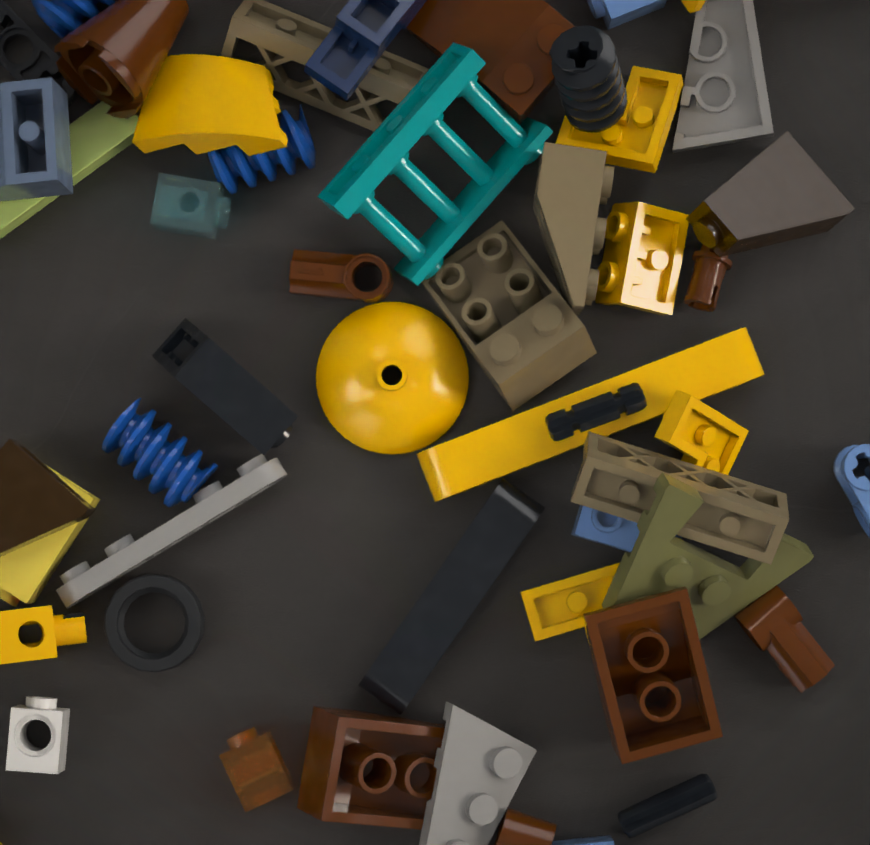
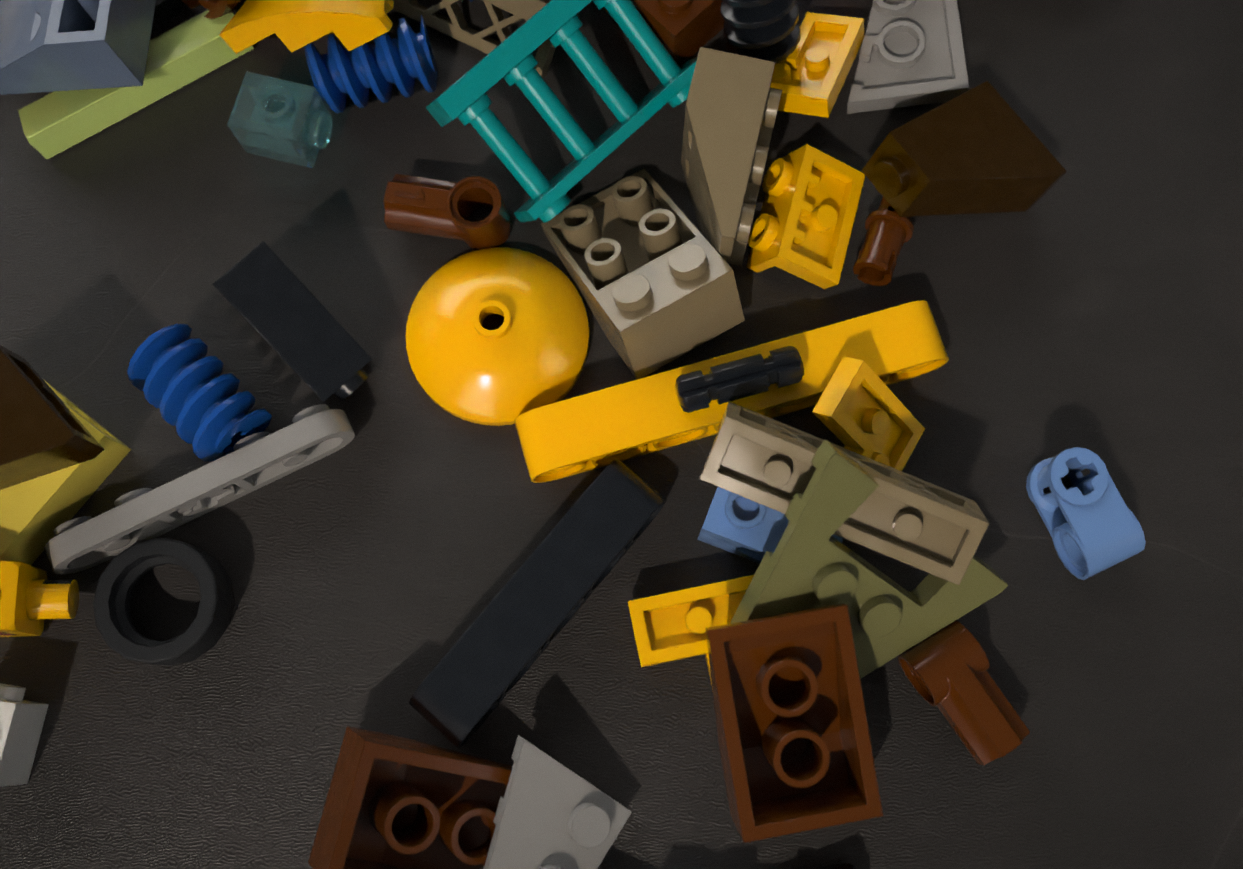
camera: 10 degrees right, 10 degrees down
(256, 768) = (261, 803): clear orange brick -> none

